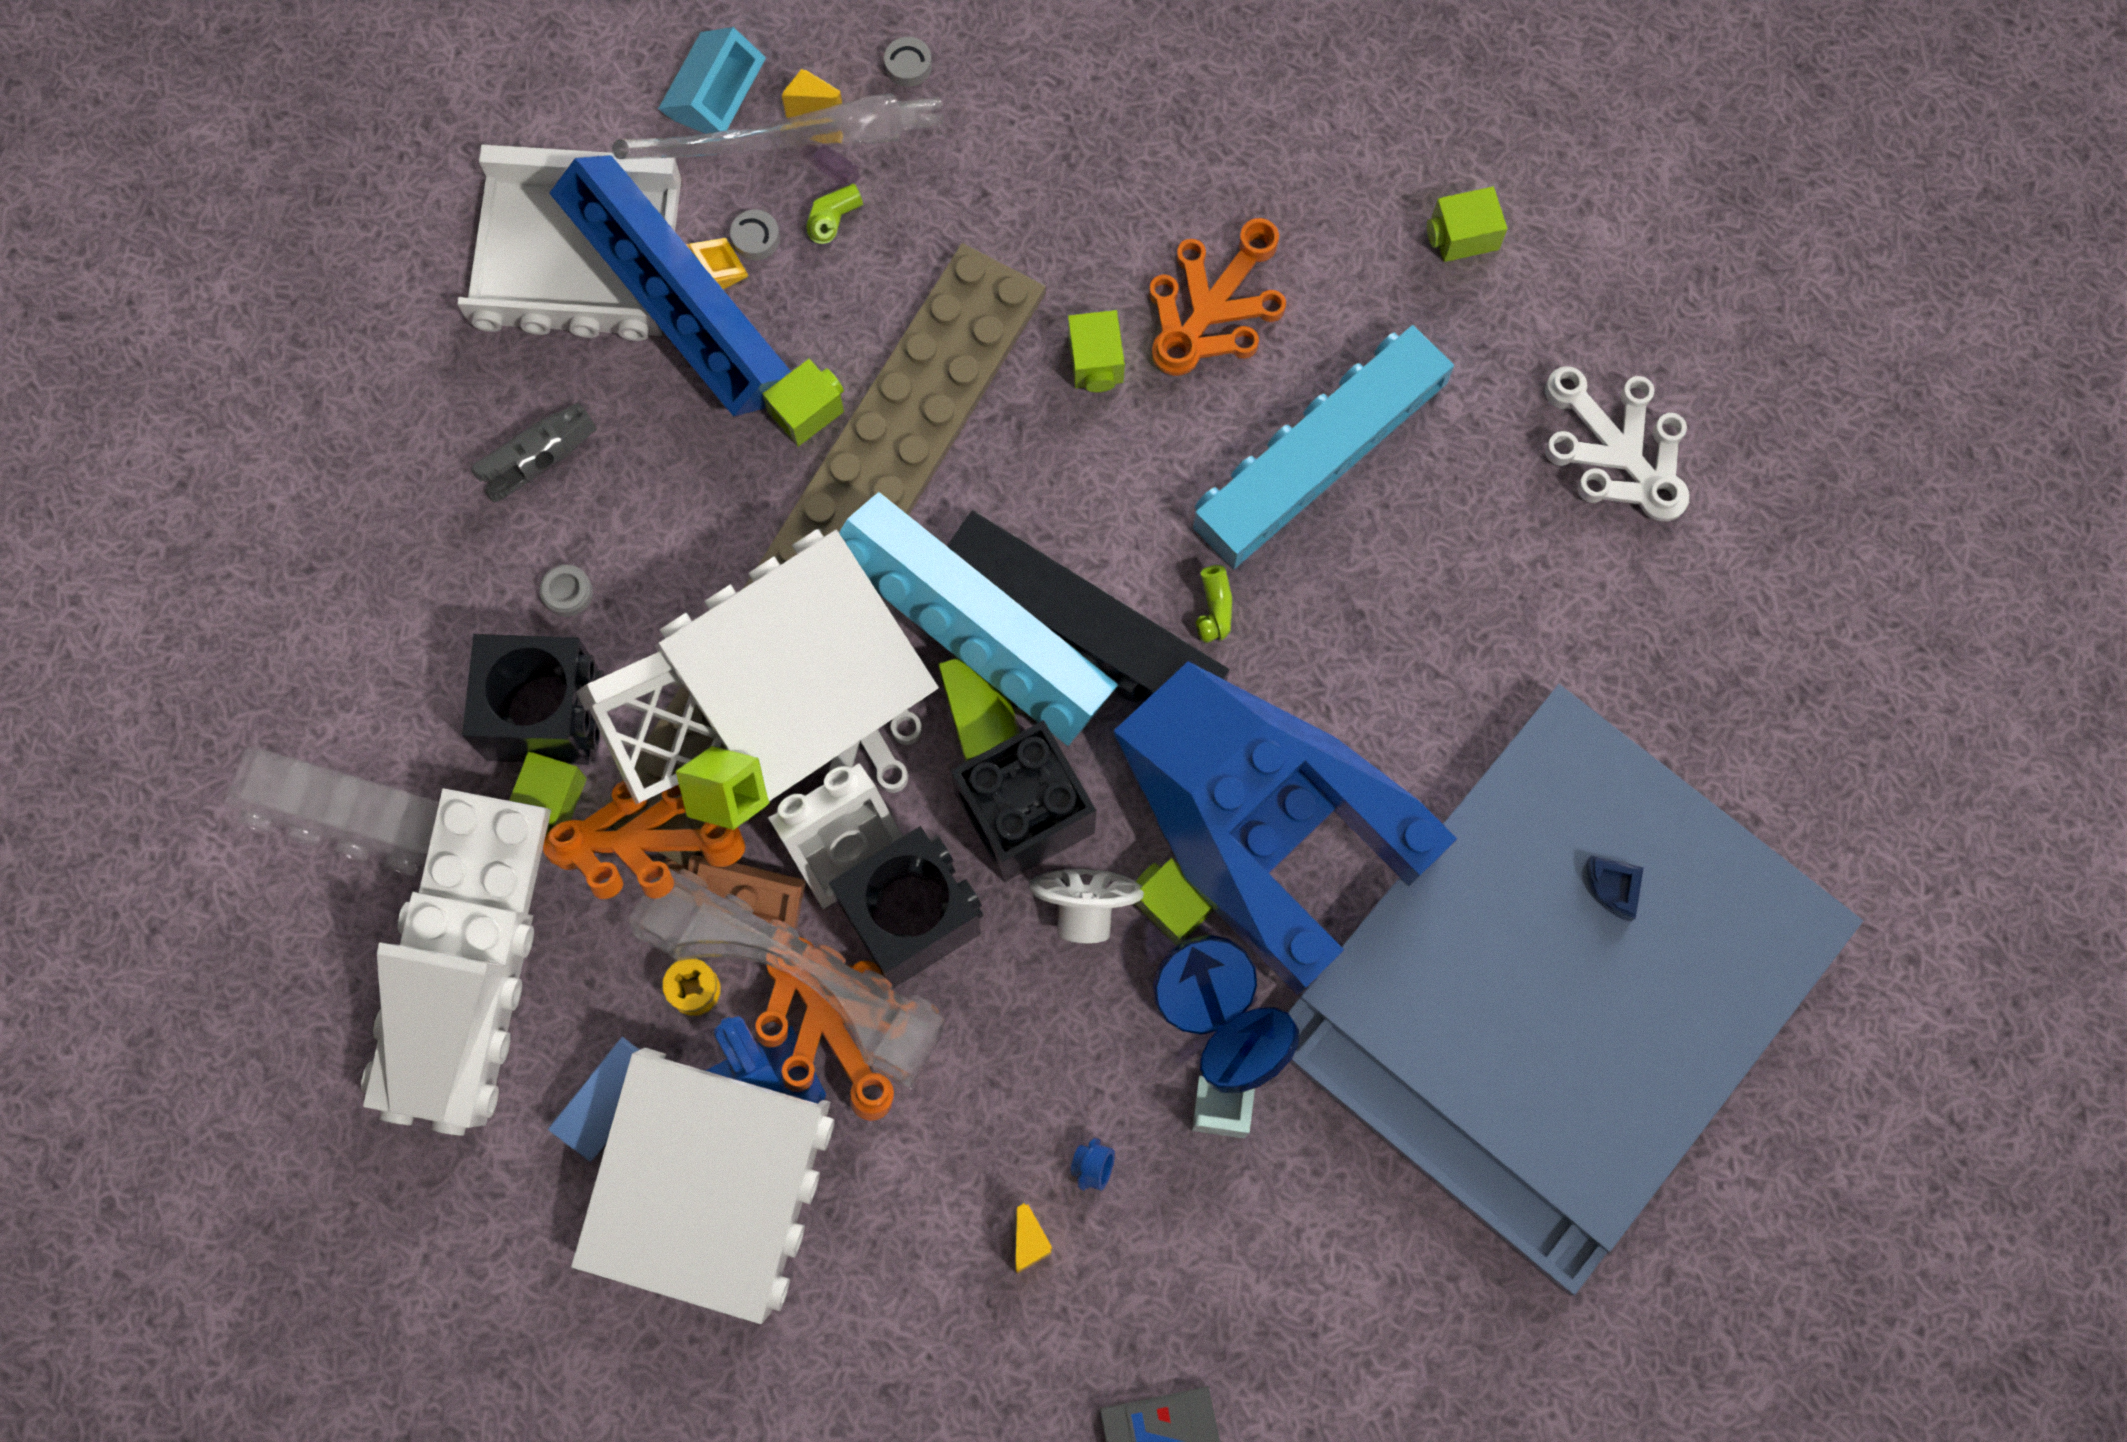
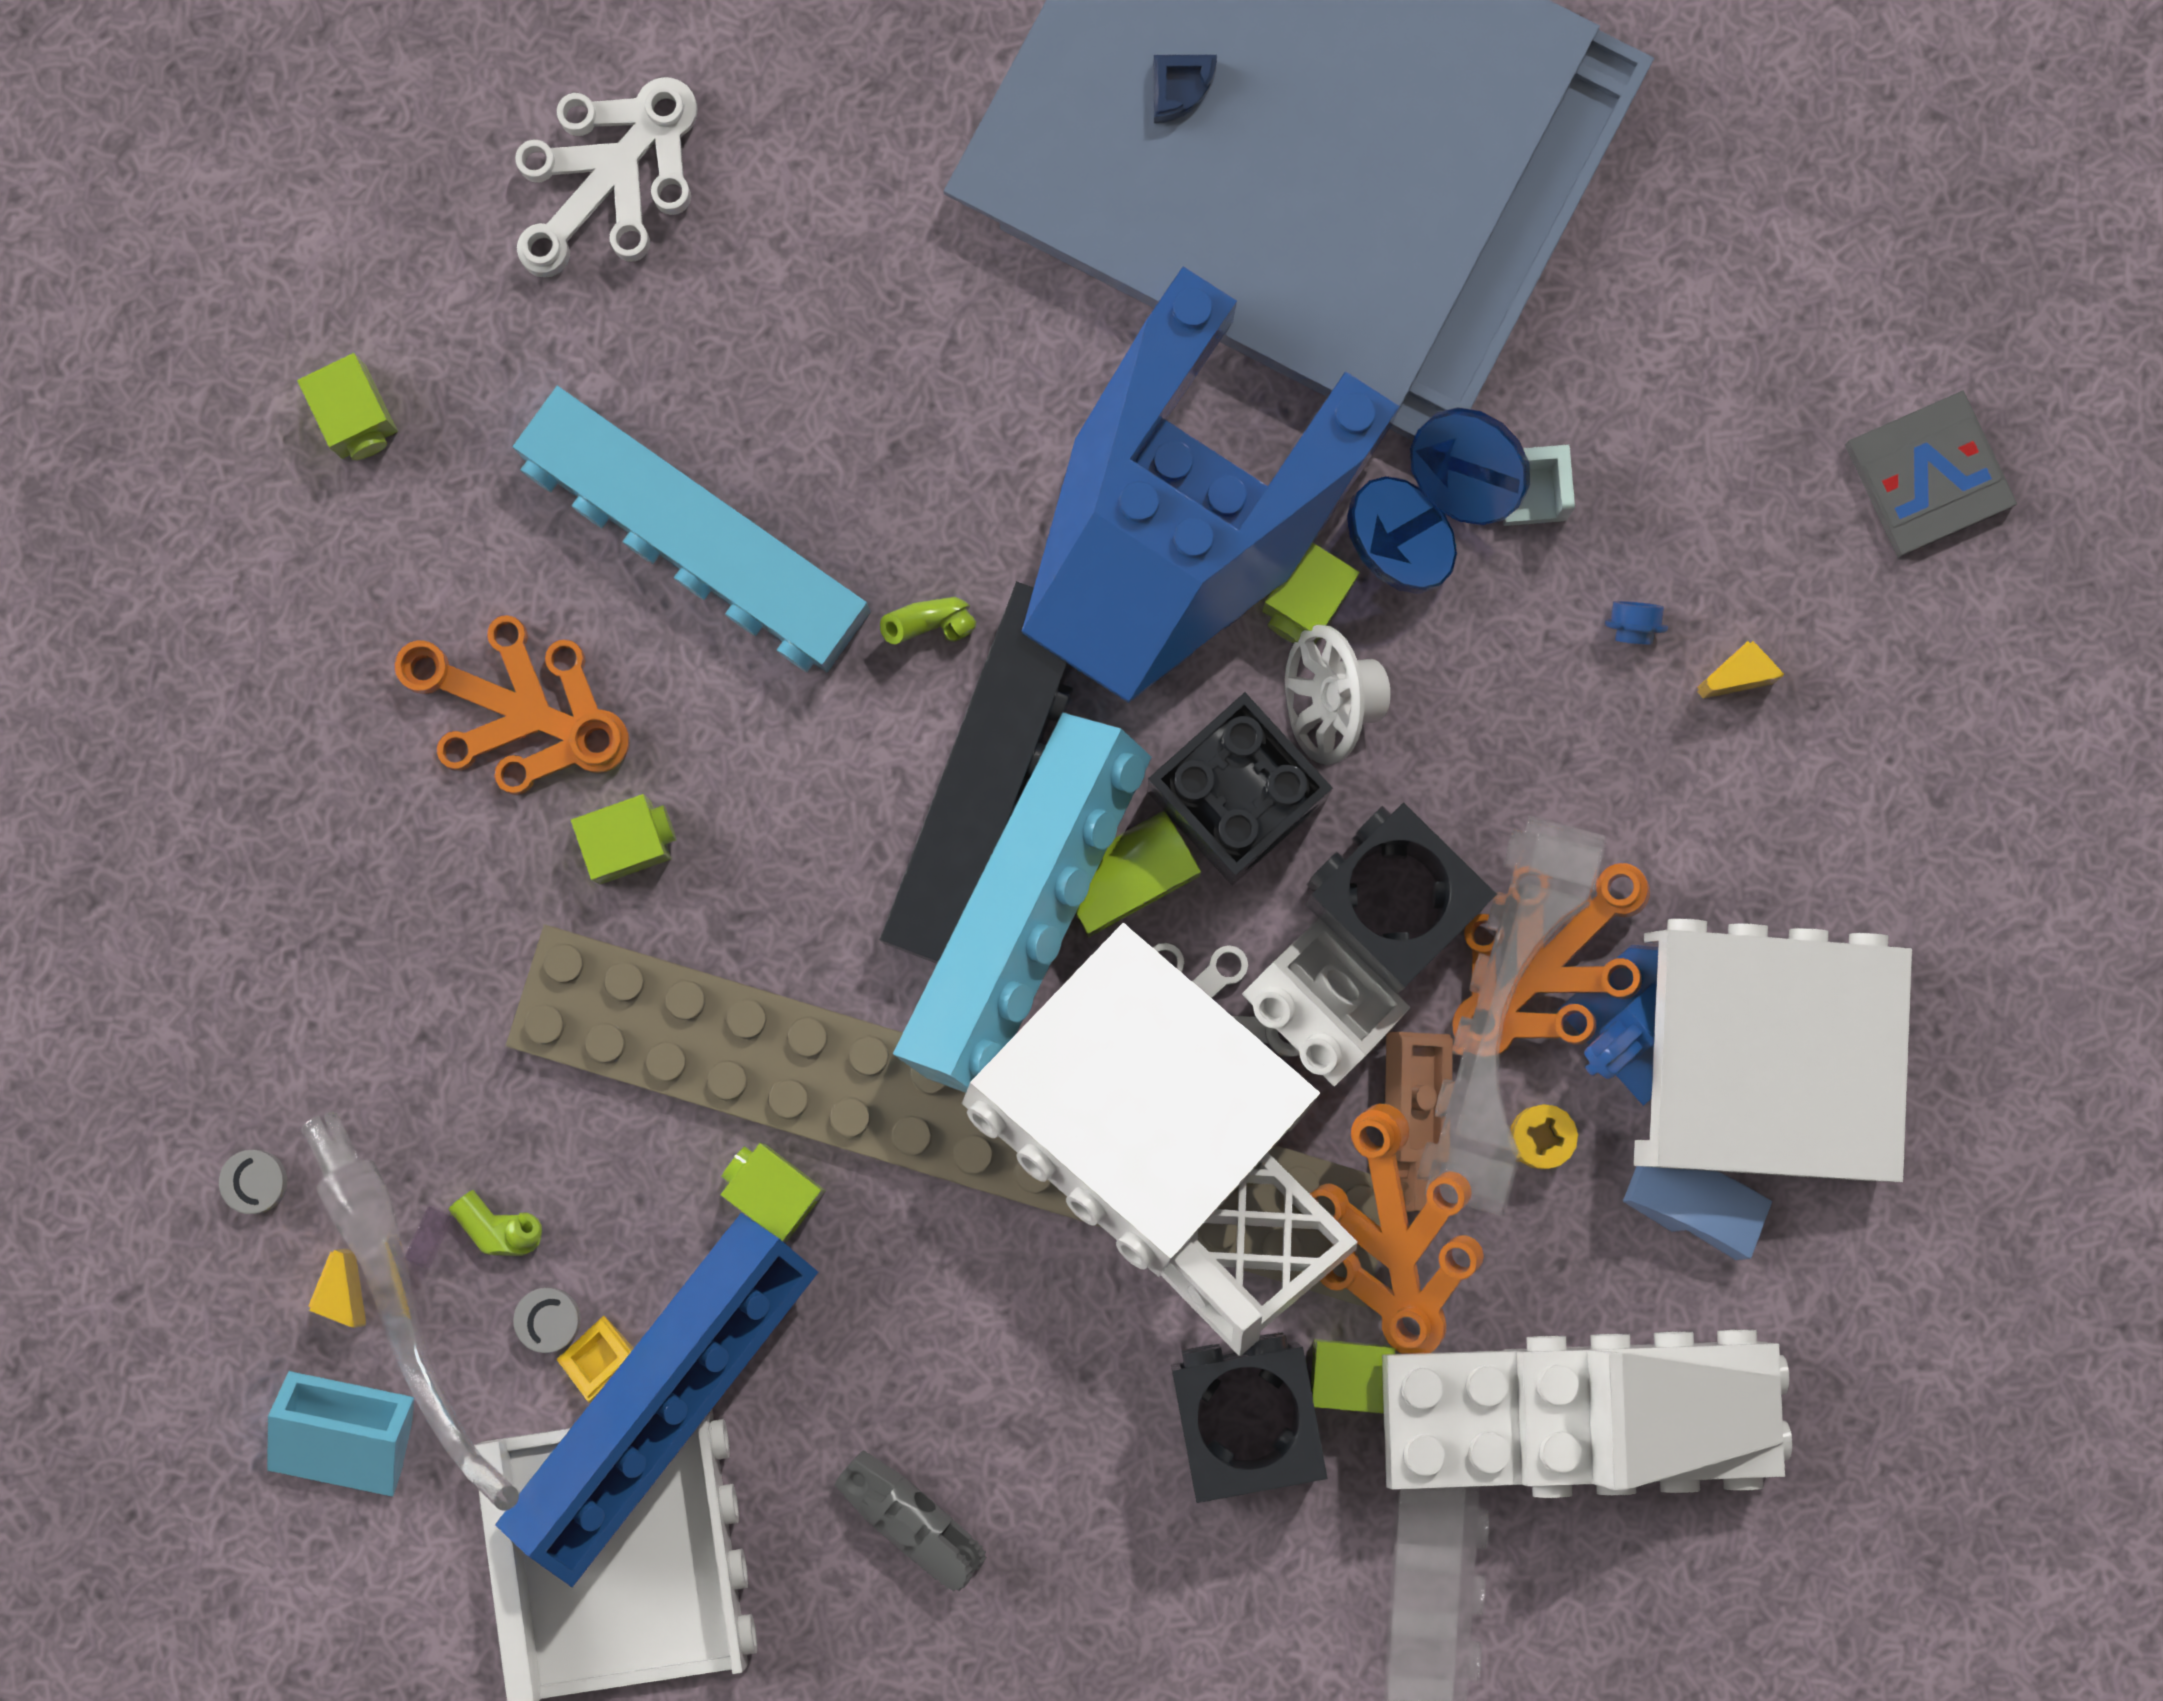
camera: 95 degrees left, 10 degrees up
(566, 590) = (1083, 1430): light grey tile -> none
(722, 787) = (1318, 1143): lime brick -> none

